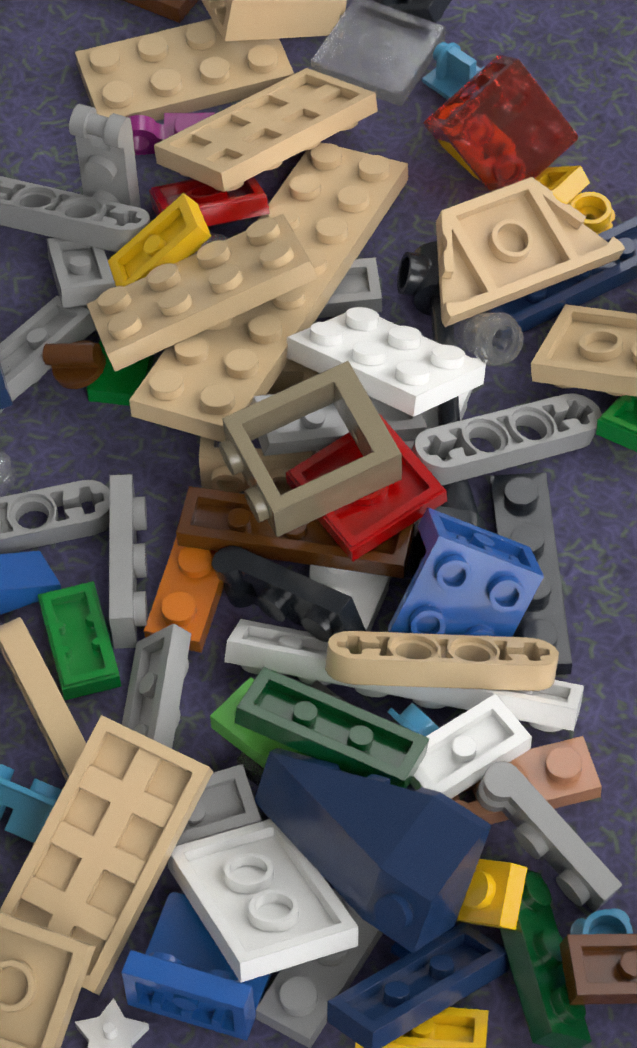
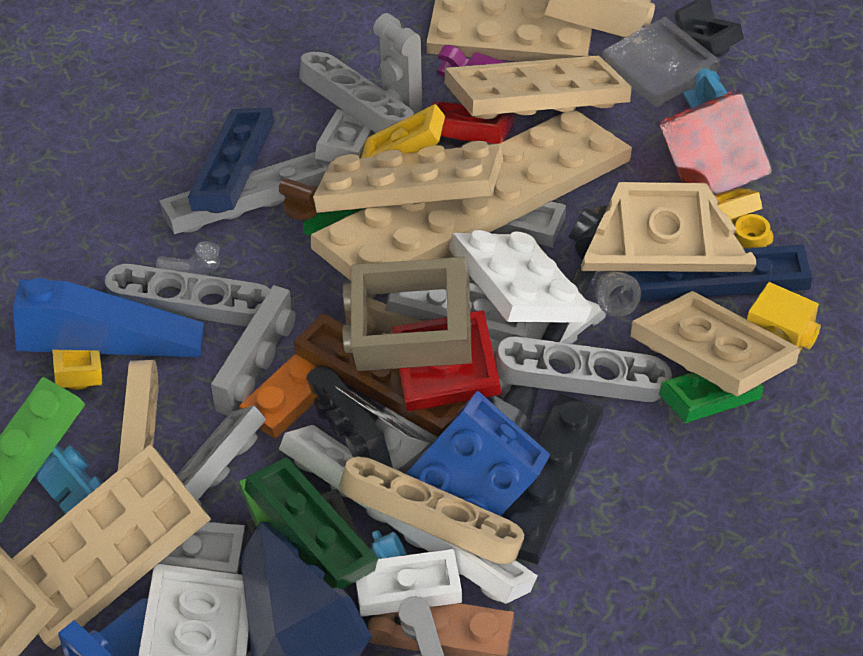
camera: 25 degrees right, 5 degrees down
(79, 640) = (188, 395): green plate -> none
(338, 576) = (386, 416): none -> black sticker

